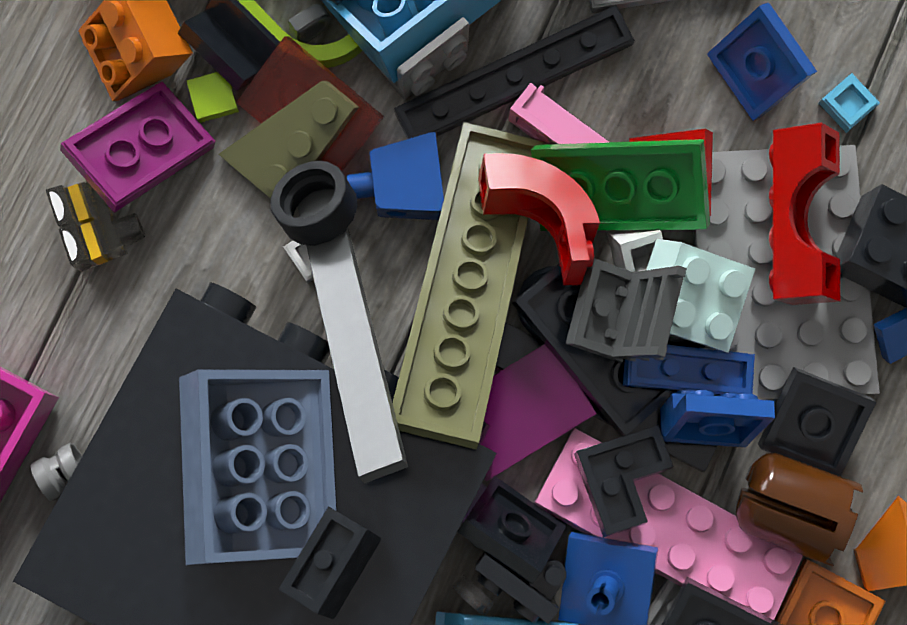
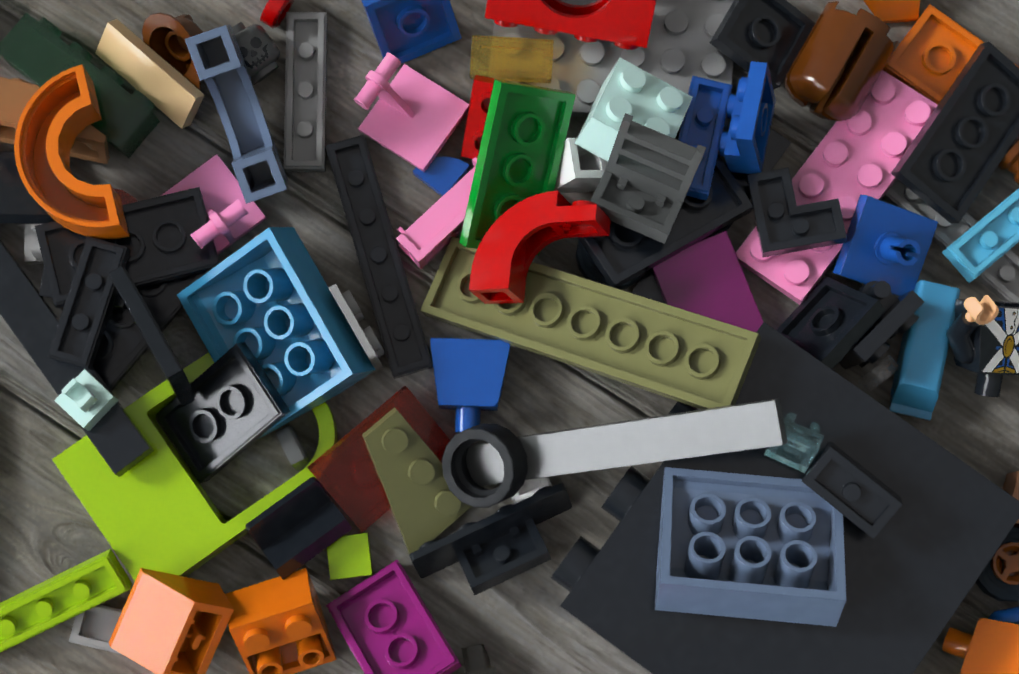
camera: 80 degrees left, 0 degrees up
(241, 233) = (497, 545): none -> black bracket
(369, 499) = (801, 446): none -> clear light blue tile
(609, 120) = (442, 173): none -> blue tile
(662, 82) = (411, 113): none -> bright pink plate
(737, 168) = (512, 58): none -> clear yellow tile

